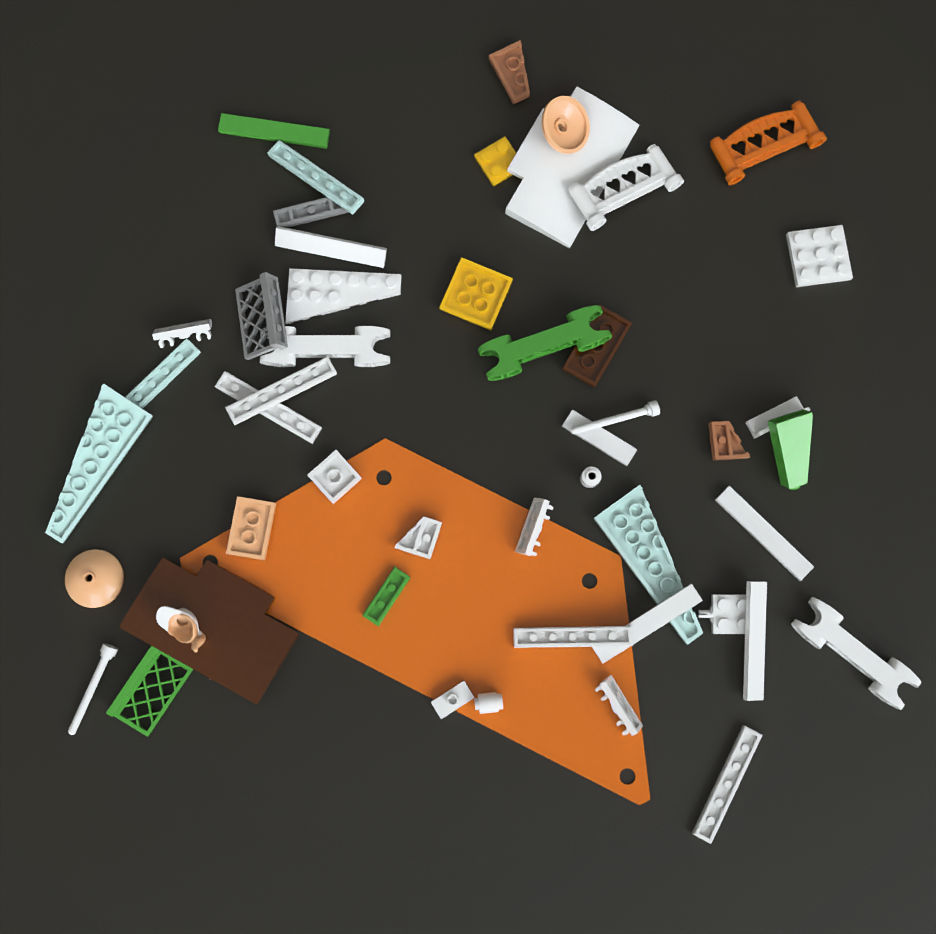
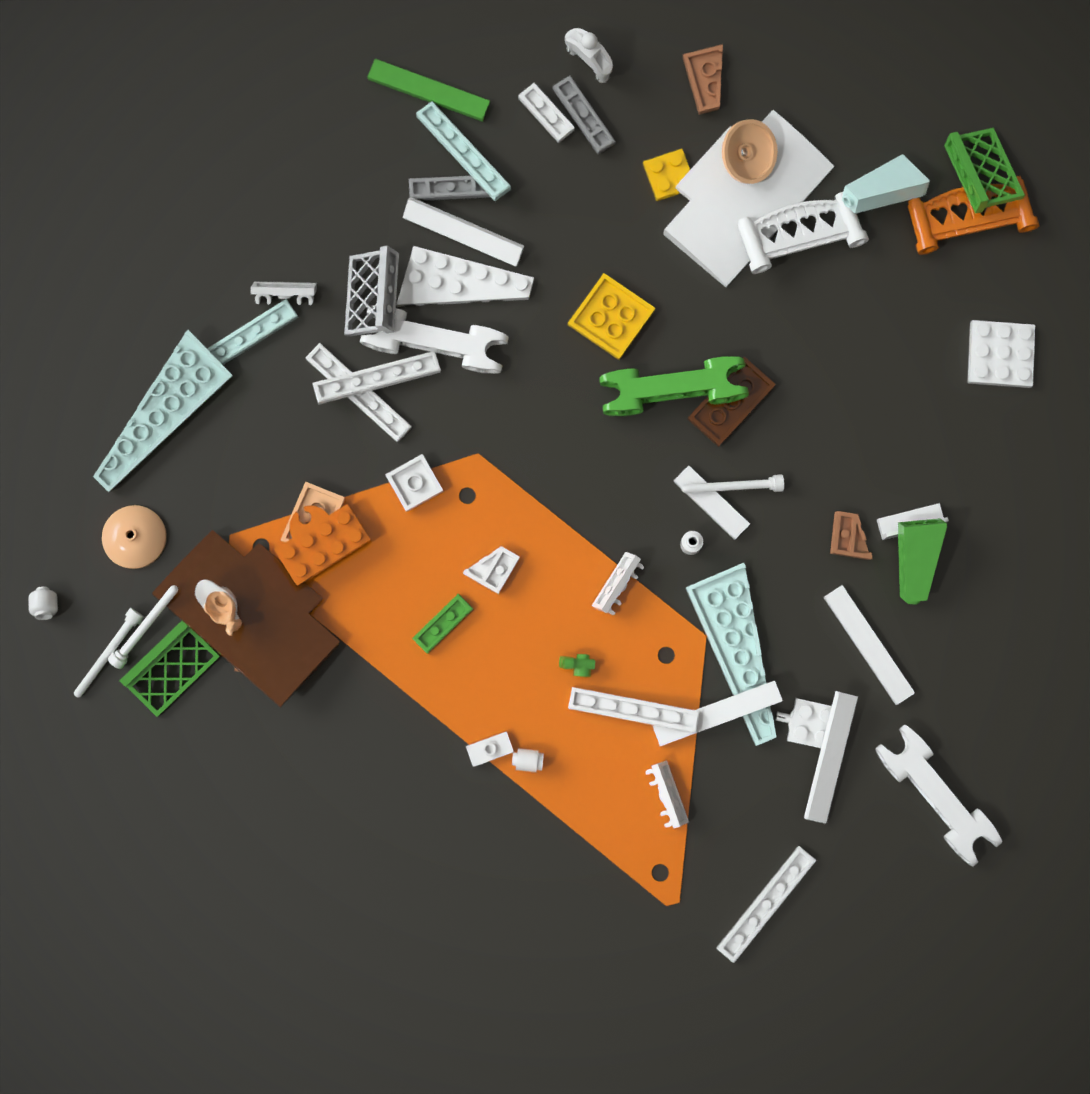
camera: 15 degrees right, 0 degrees up
(23, 657) = (43, 603): none -> white head
(103, 691) = (119, 657): none -> white piece
(261, 547) = (320, 541): none -> orange plate
(380, 129) = (546, 112): none -> white plate
(409, 67) = (591, 51): none -> white connector
(414, 124) = (584, 115): none -> light grey plate
(517, 606) = (582, 664): none -> bright green plate
(689, 131) = (885, 186): none -> light aqua slope
(757, 106) = (967, 170): none -> bright green fence

